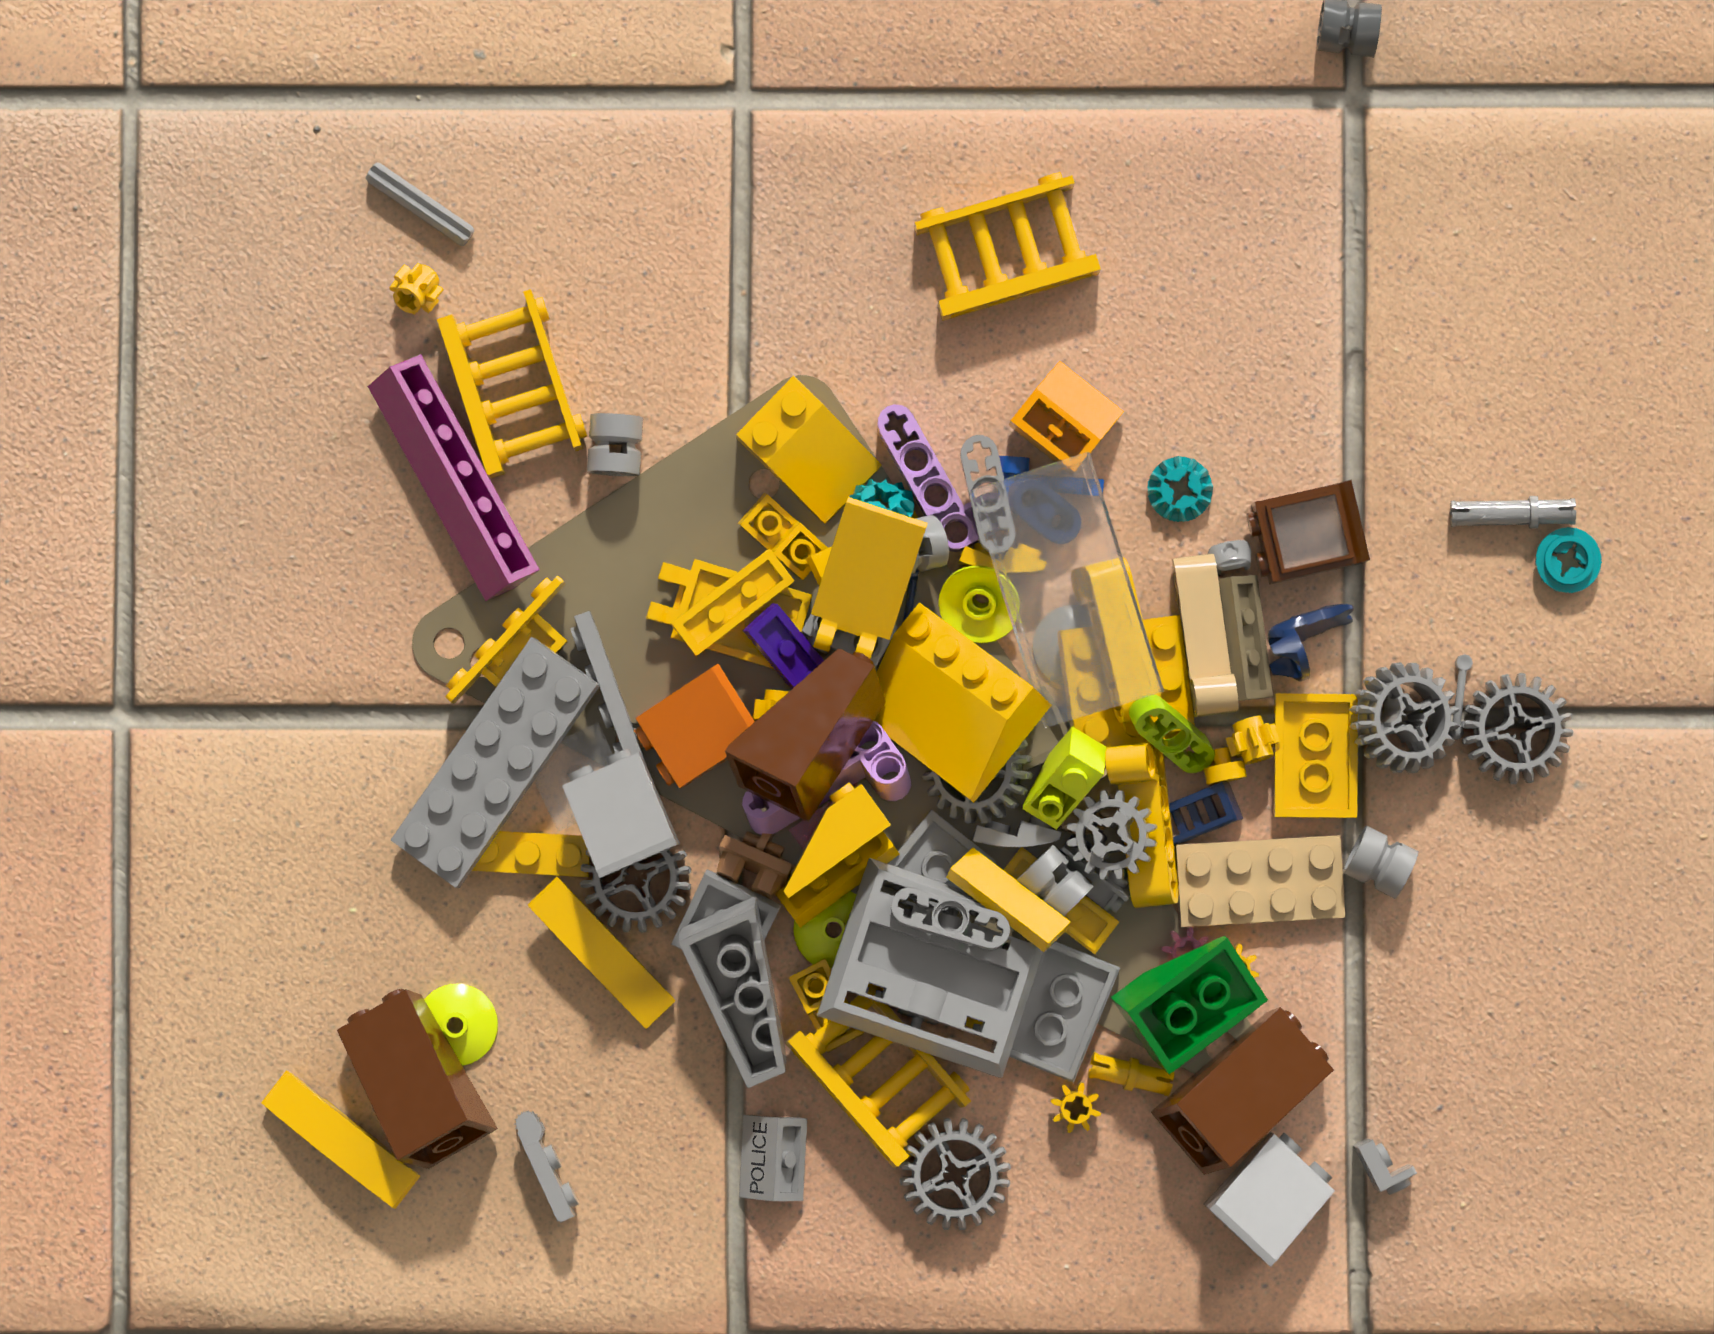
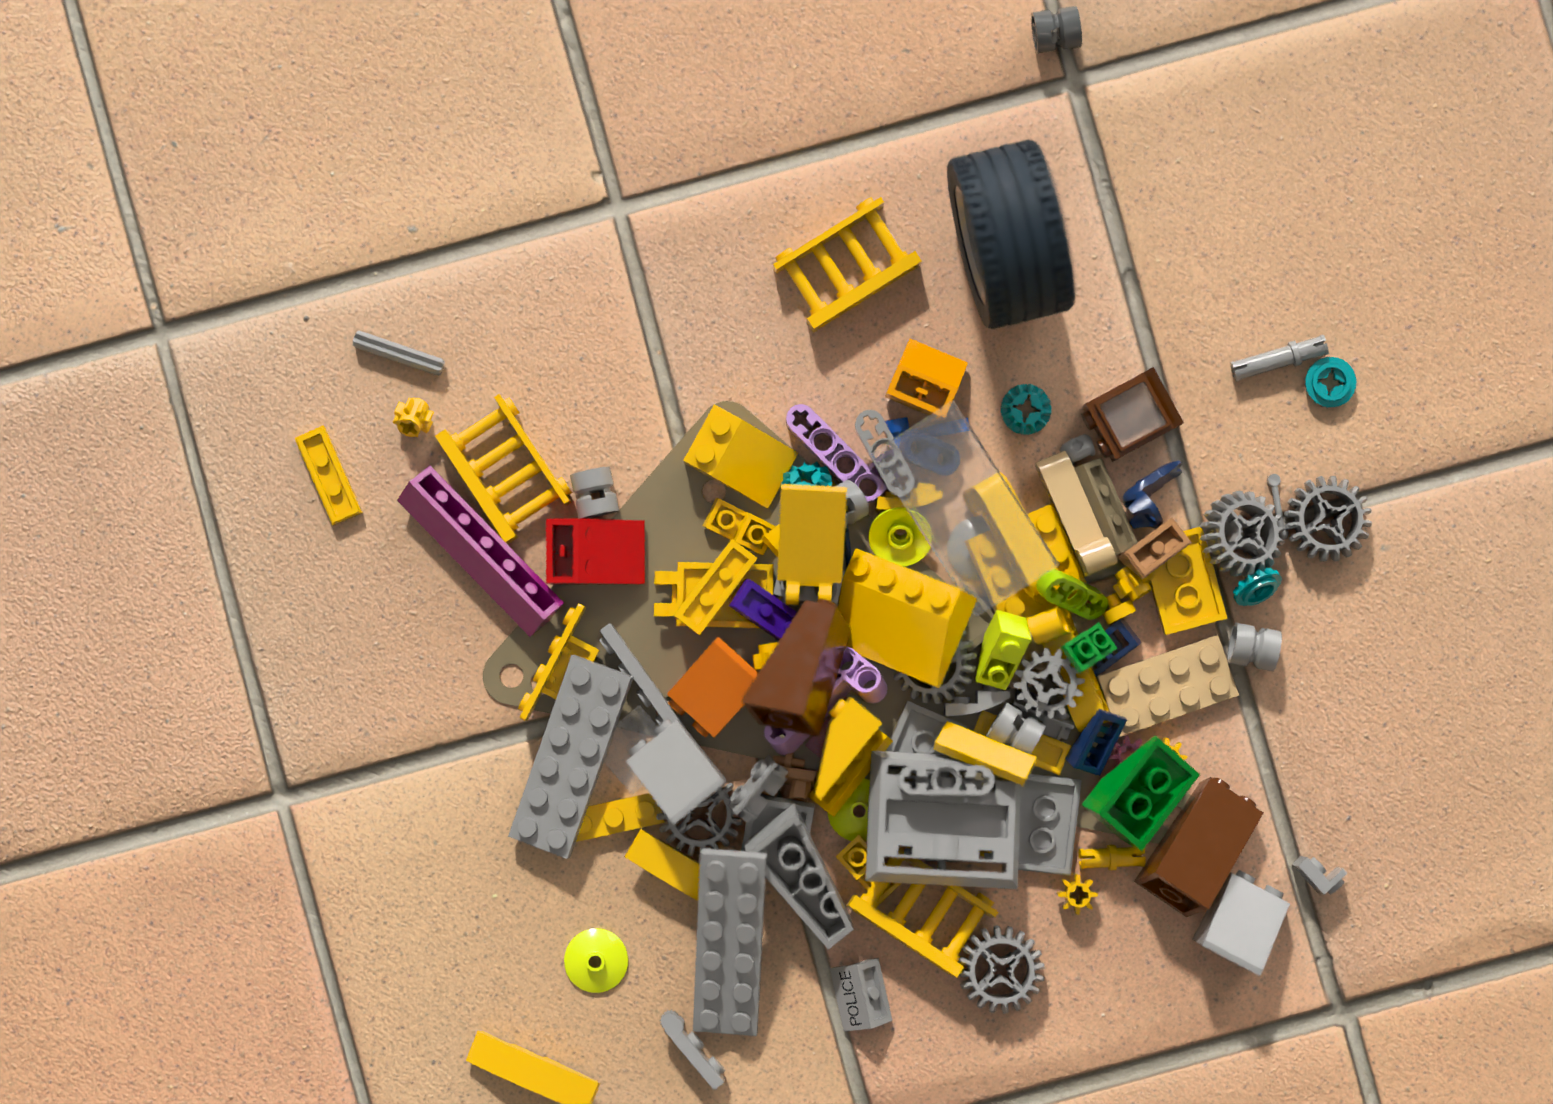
camera: 10 degrees left, 0 degrees up
(291, 331) = (328, 475): none -> yellow tile
(414, 1080) = (576, 1012): reddish brown slope -> none
(595, 517) = (595, 551): none -> red slope
(627, 1045) = (729, 941): none -> light grey plate
(726, 854) = (763, 777): none -> light grey hinge
(1152, 942) = (1100, 754): none -> dark blue slope
(1173, 805) = (1088, 648): none -> green slope
(1217, 266) = (1011, 234): none -> black wheel
(1290, 706) = (1155, 549): none -> medium nougat slope
(1404, 789) = (1257, 587): none -> teal gear

